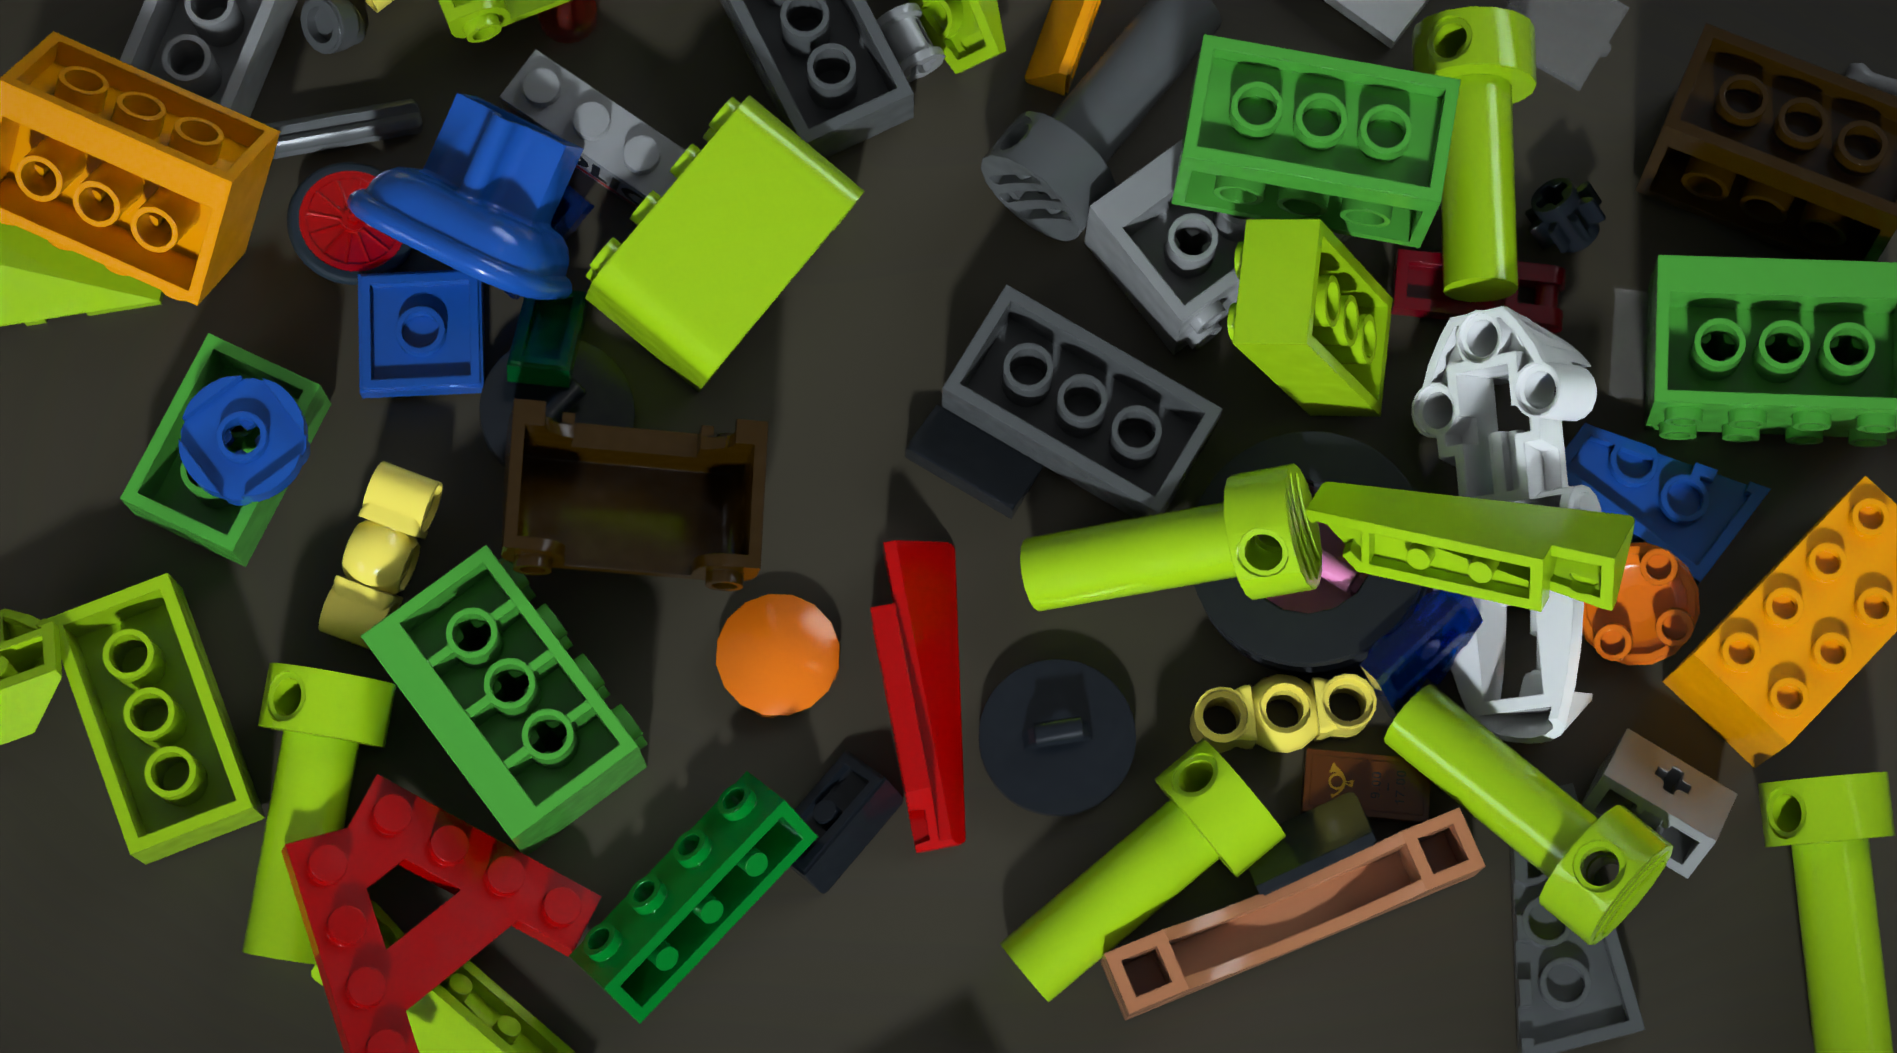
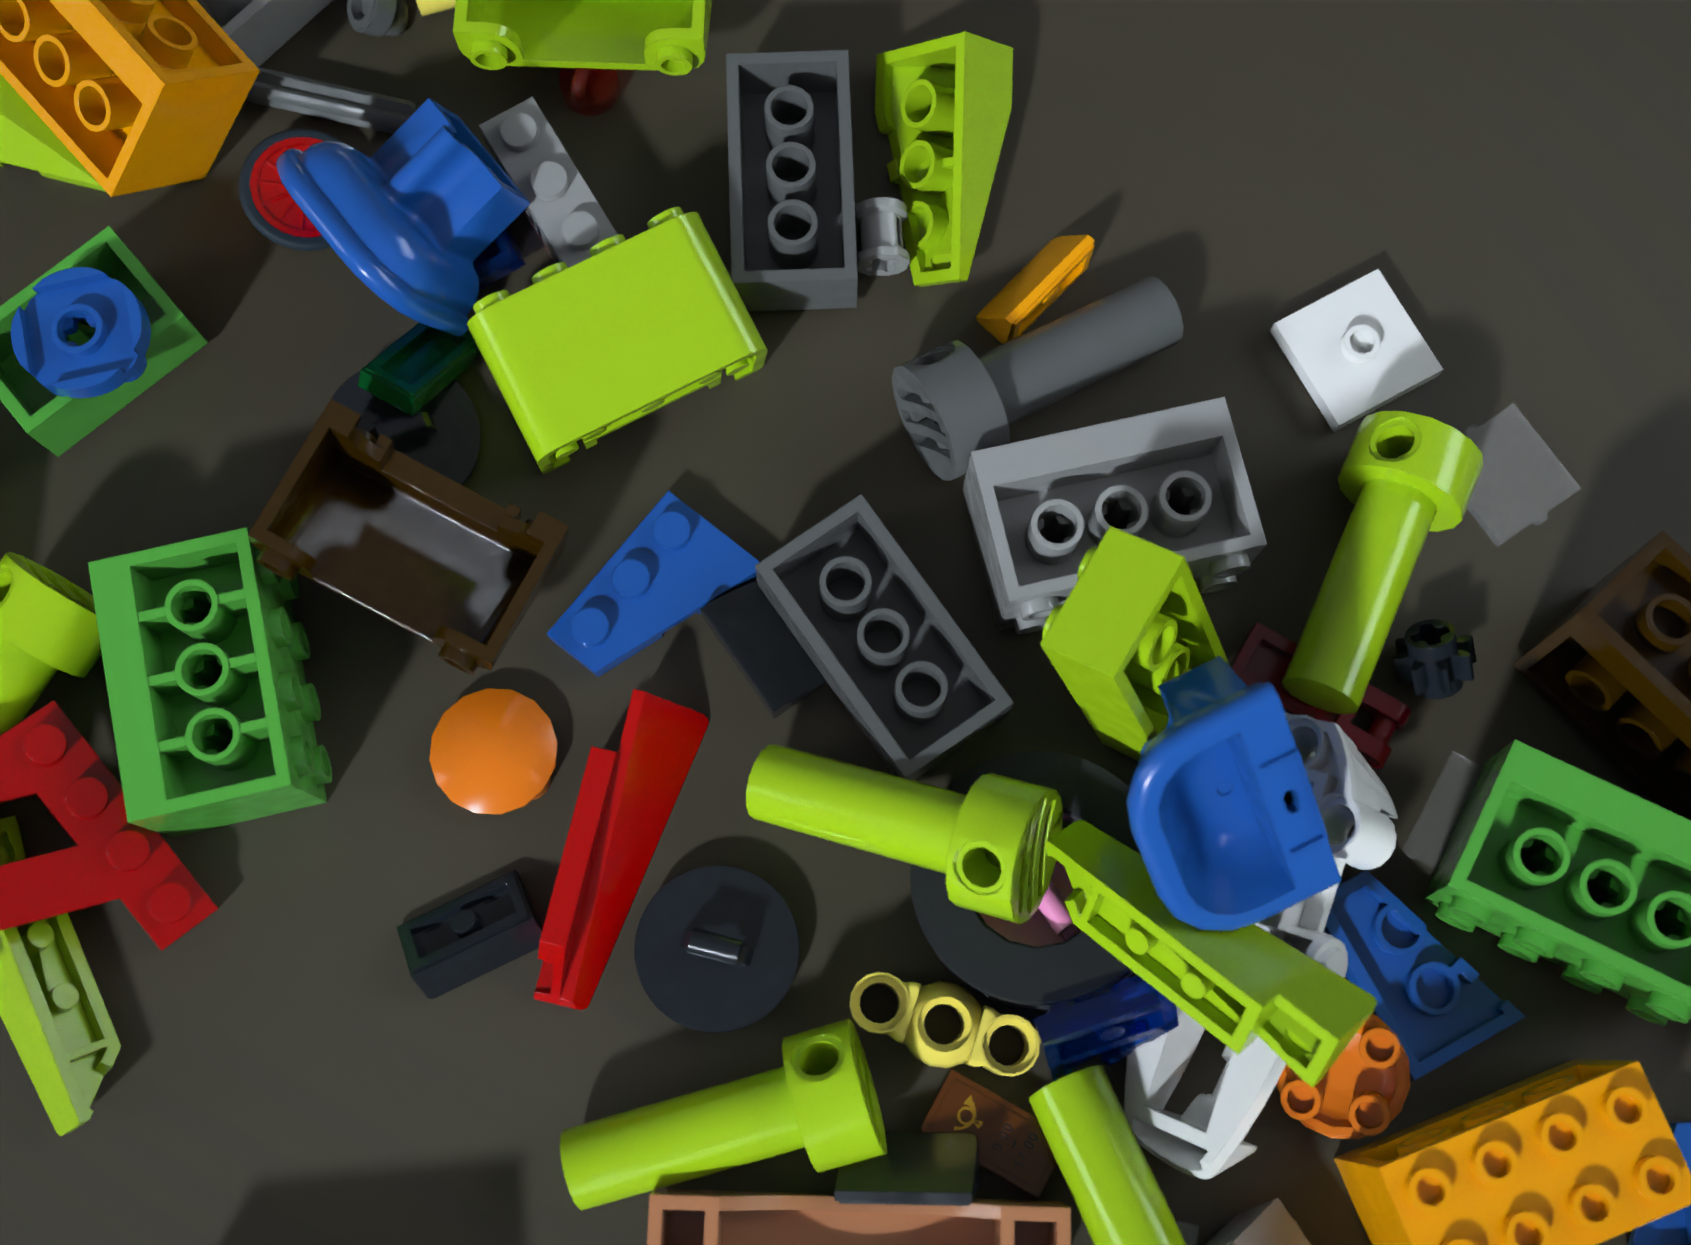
camera: 25 degrees right, 0 degrees up
(380, 552) = (179, 492): light yellow piece -> none
(420, 334) = (311, 315): blue plate -> none
(693, 896) = (292, 951): green brick -> none
(848, 445) = (650, 585): none -> blue wing
(1316, 140) = (1217, 476): bright green brick -> none
(1444, 409) = (1227, 805): none -> blue piece

